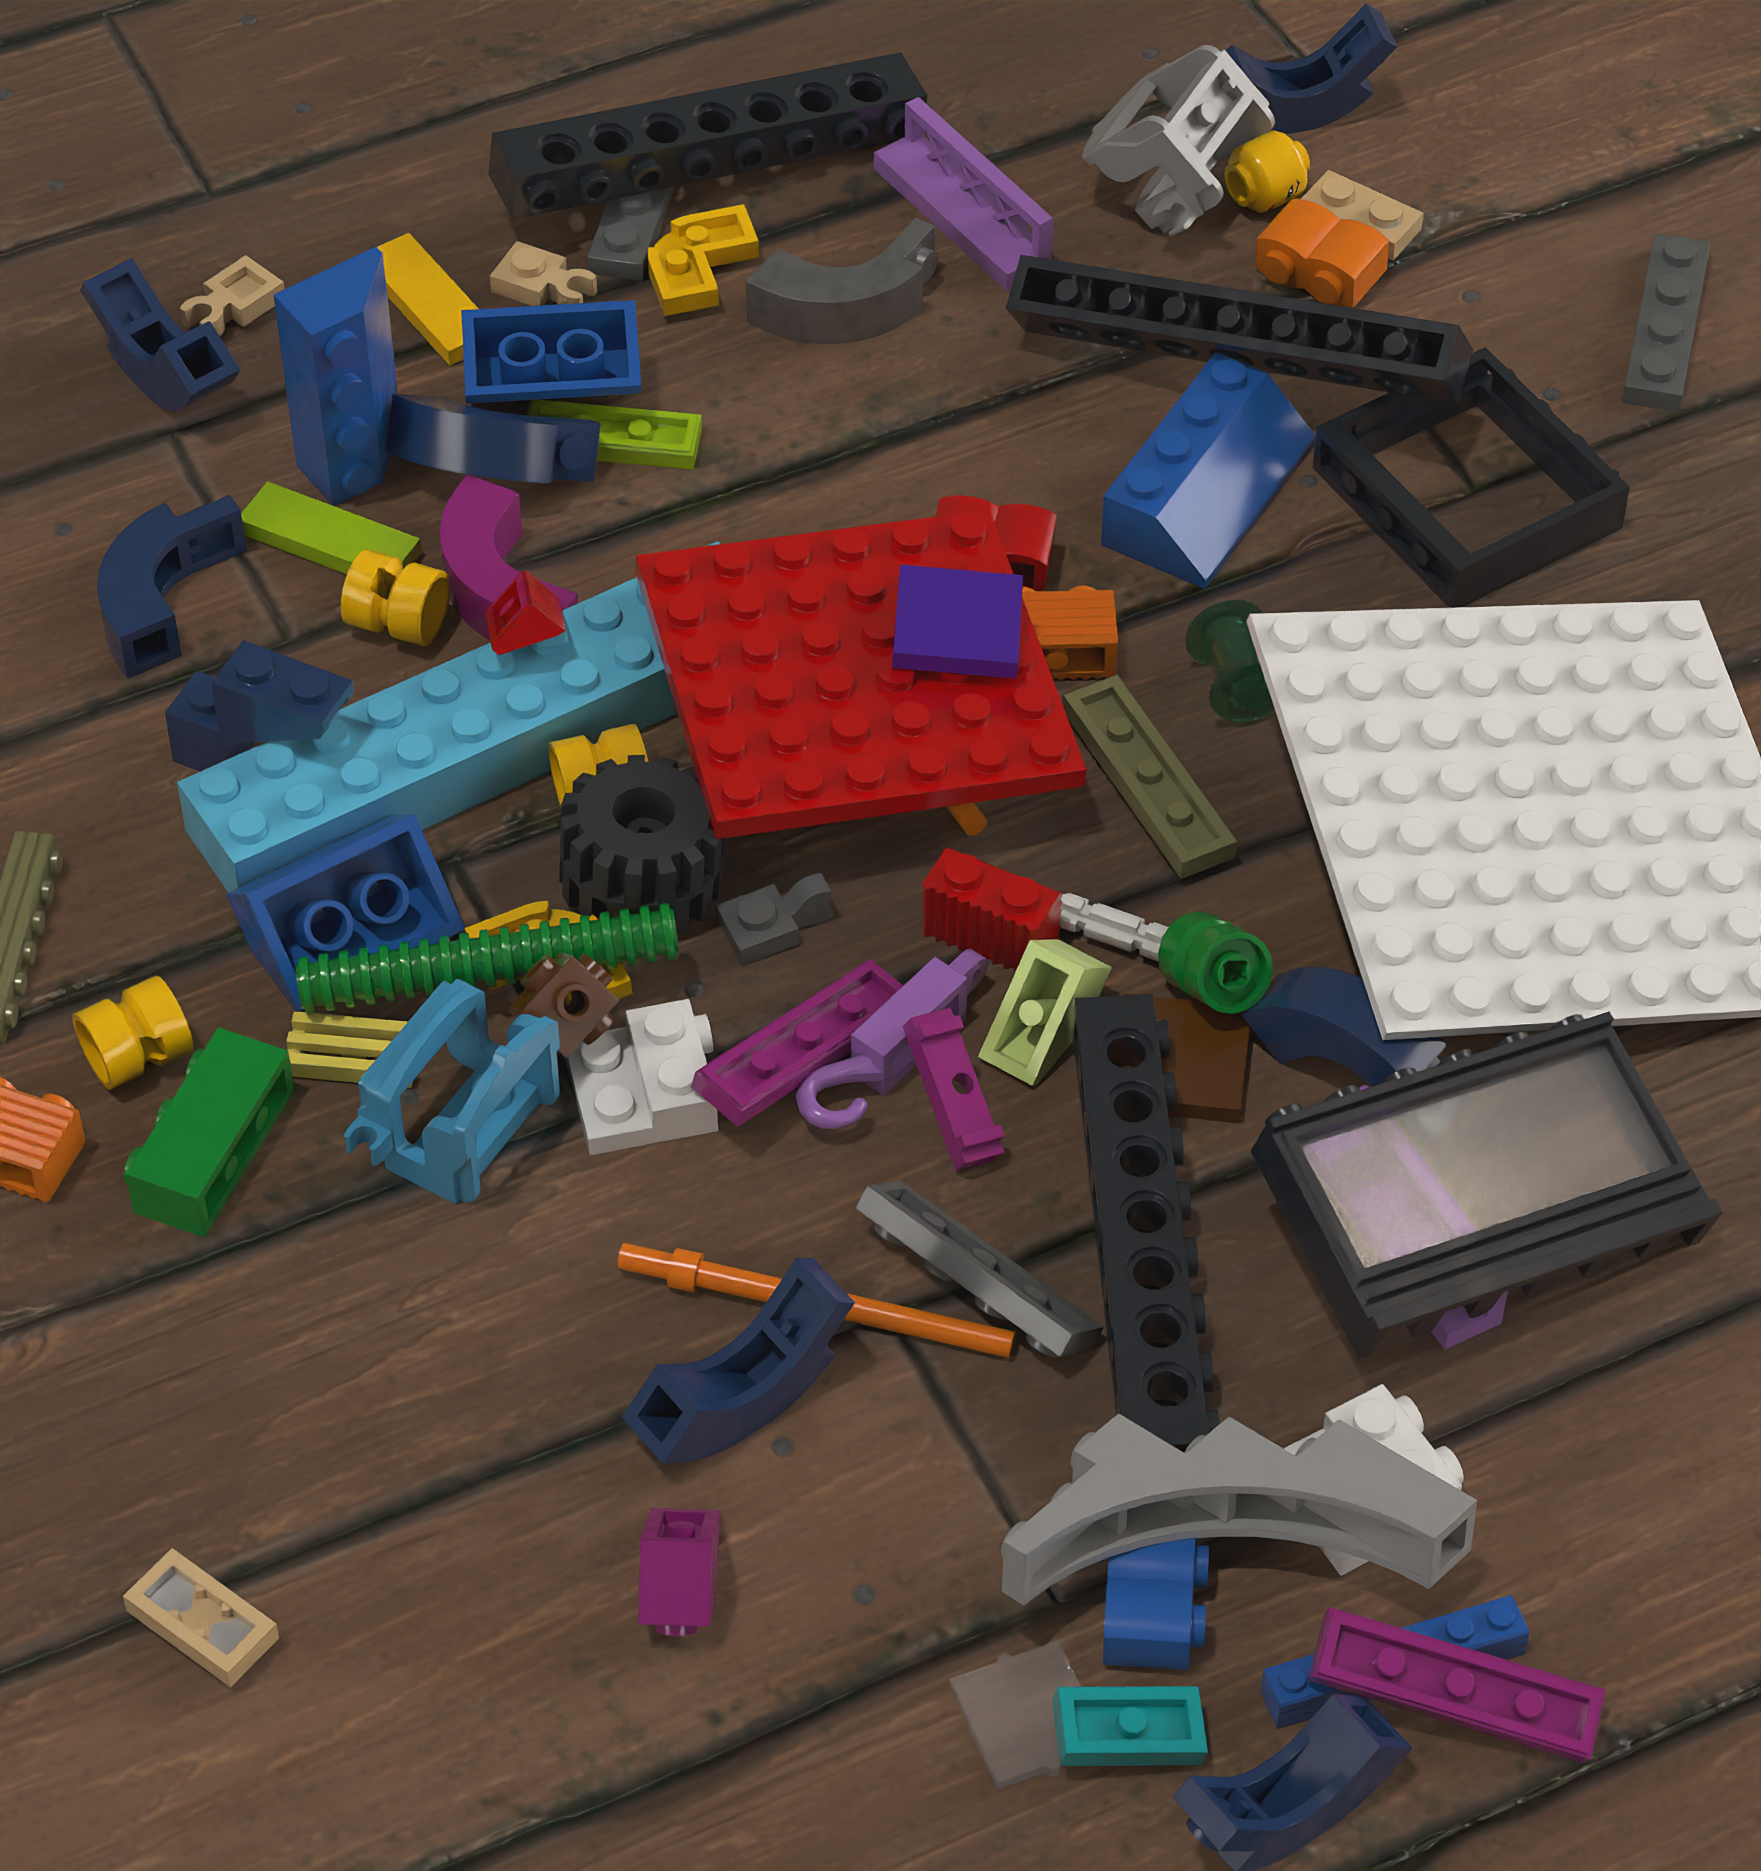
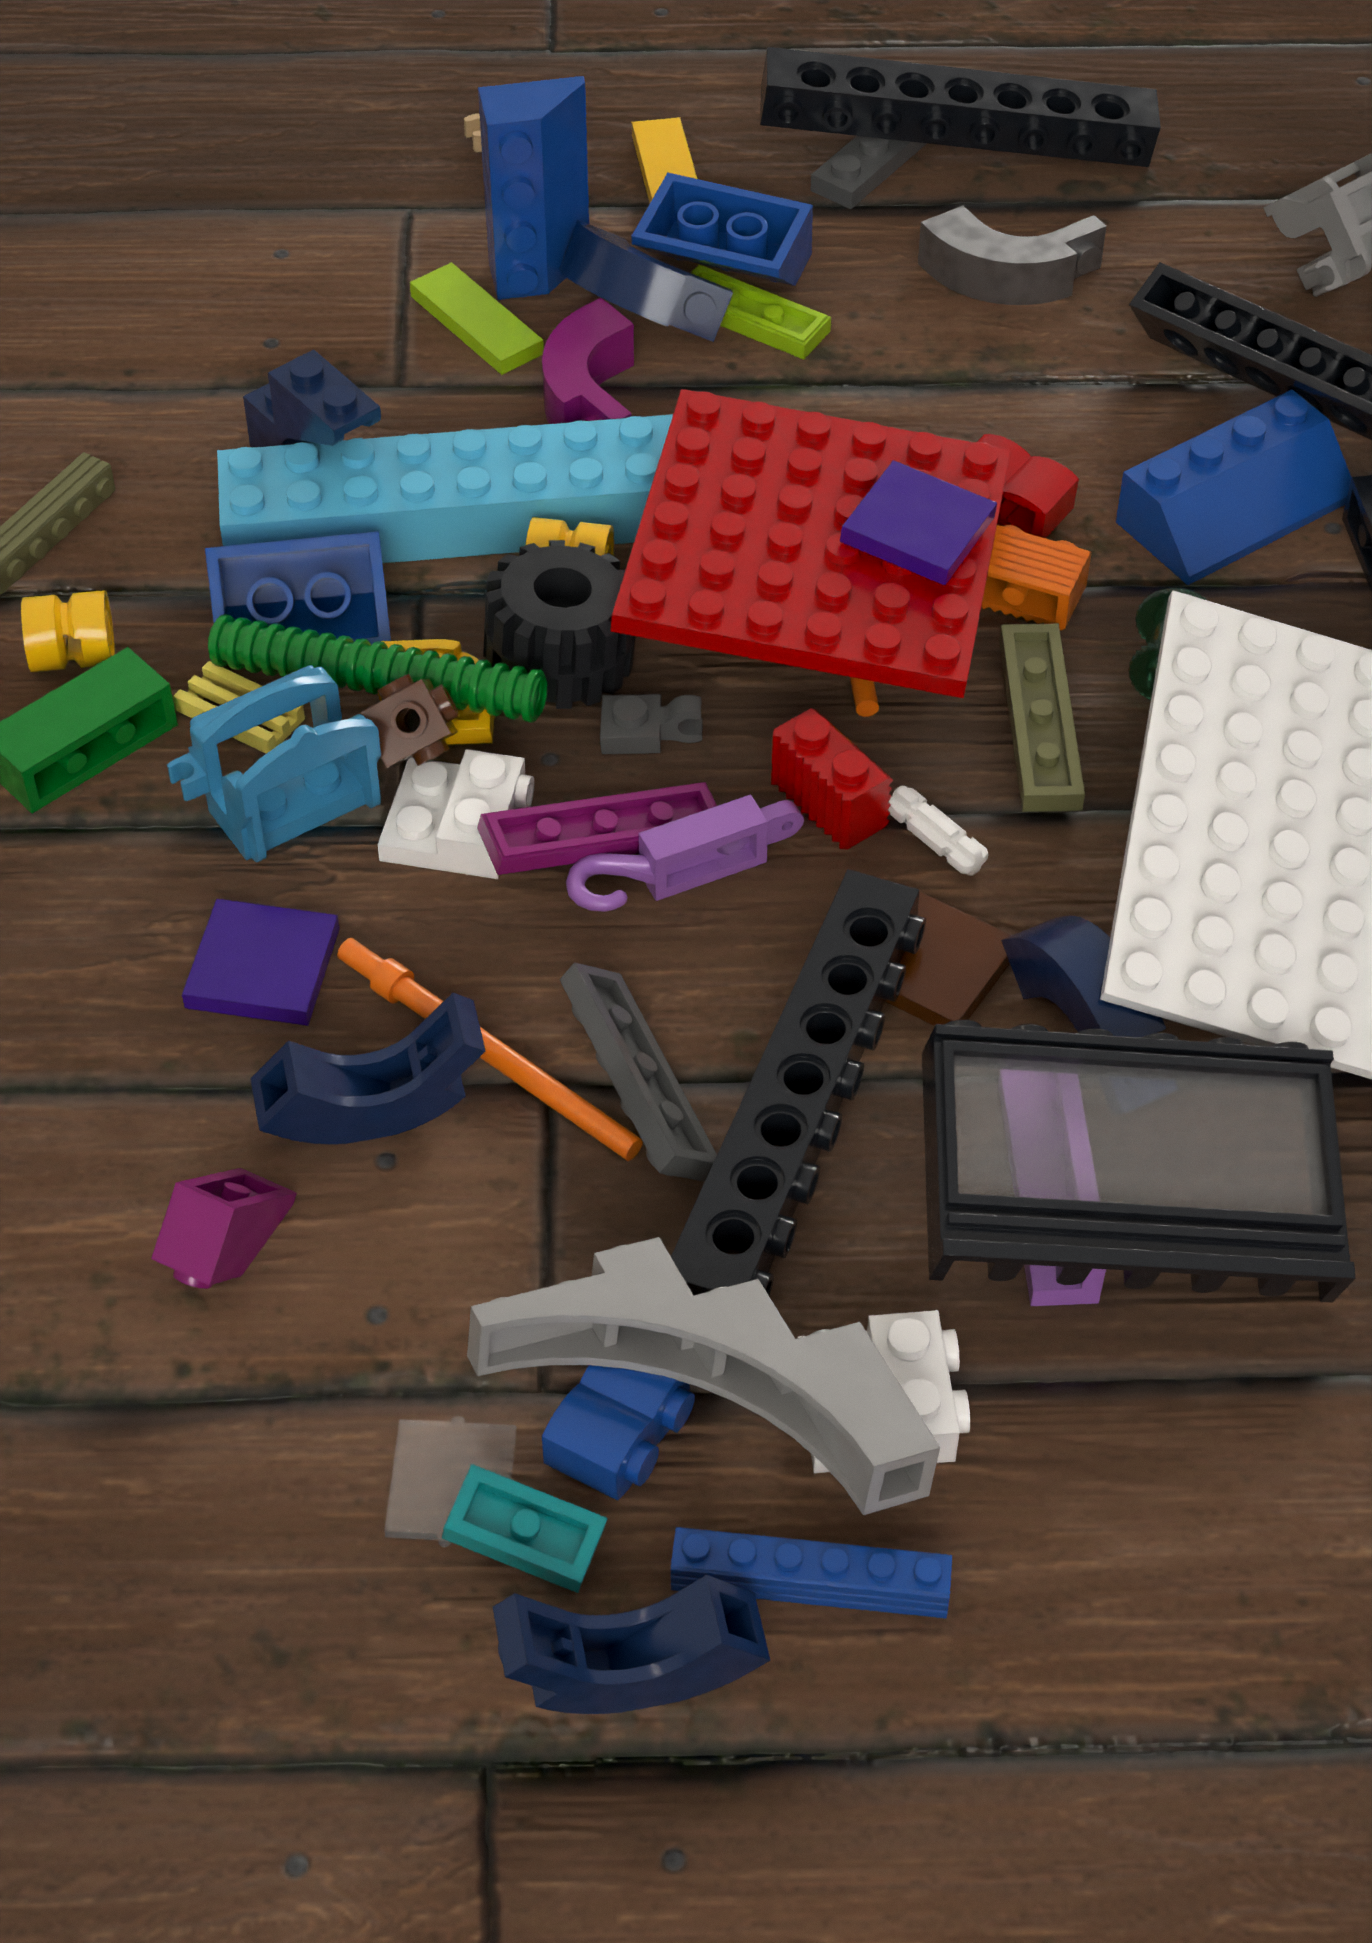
camera: 25 degrees right, 0 degrees up
(146, 564) = (316, 293): dark blue arch -> none
(151, 349) = (426, 138): dark blue arch -> none
(386, 595) = (490, 374): yellow wheel -> none
(524, 615) = (568, 408): red slope -> none
(539, 275) = (765, 174): tan plate -> none
(544, 1300) = (261, 962): none -> dark purple tile
(683, 258) = (912, 188): yellow plate -> none
(961, 1117) = (703, 939): magenta piece -> none
(964, 201) = (1152, 210): medium lavender fence -> none
(1038, 1008) = (810, 876): yellowish green slope -> none
(1215, 962) = (998, 885): green wheel -> none
(1457, 1685) = (849, 1619): magenta tile -> none

